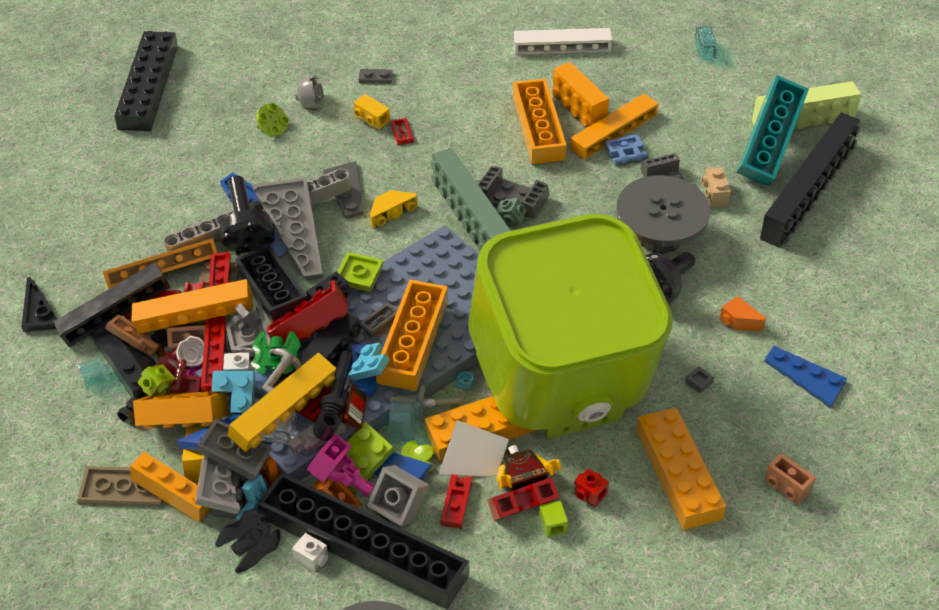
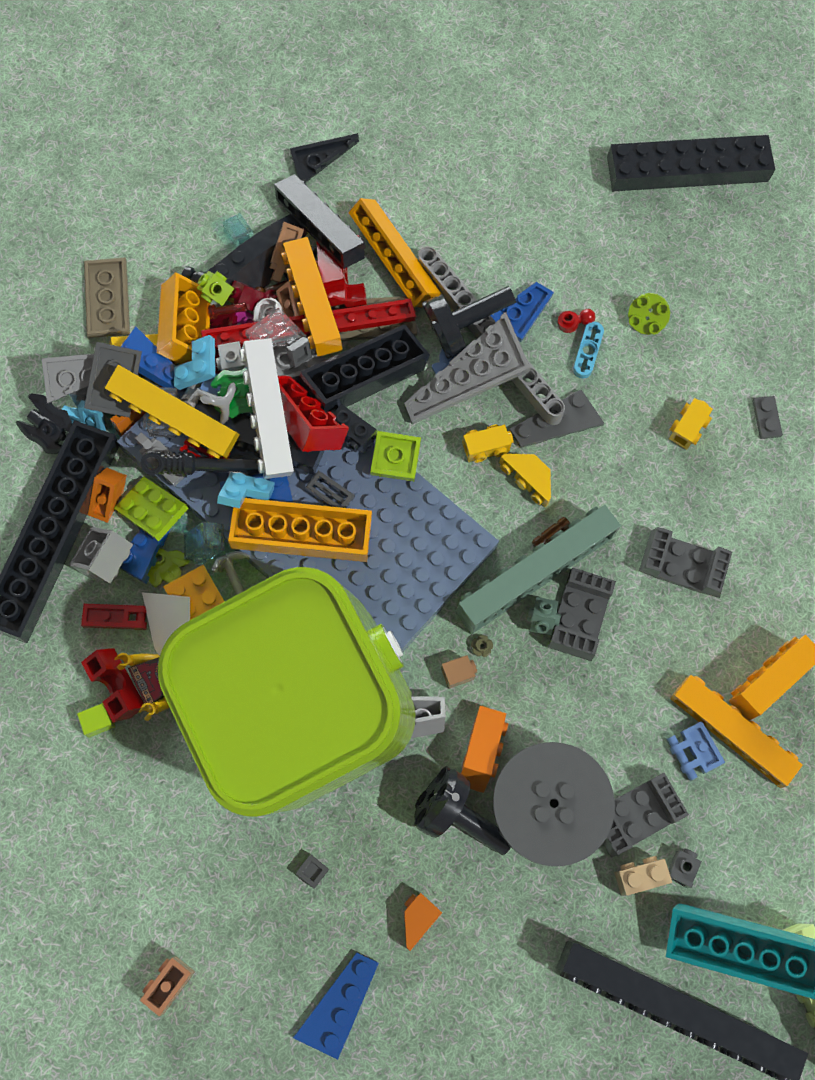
camera: 75 degrees right, 25 degrees up
(167, 485) = (102, 324): light orange brick -> none
(218, 335) = (275, 326): none -> clear wing
(260, 168) = (586, 316): none -> red plate
(298, 166) = (592, 343): none -> medium azure beam
(301, 329) = (267, 408): none -> white brick
(308, 91) = (711, 345): light grey cylinder -> none
(310, 552) = (32, 483): white brick -> none
(336, 465) = (123, 485): dark pink brick -> none
(355, 407) = (196, 488): slope -> none
(356, 227) = (486, 443): none -> yellow brick
(404, 140) = (655, 474): red tile -> none
(441, 204) = (562, 524): none -> reddish brown axle
(483, 132) = (685, 563): none -> dark grey plate
(539, 121) = (719, 630): light orange brick -> none
(591, 487) = (143, 761): red brick -> none
(680, 468) = (172, 855): light orange brick -> none
(710, 162) = (676, 870): none -> dark grey brick

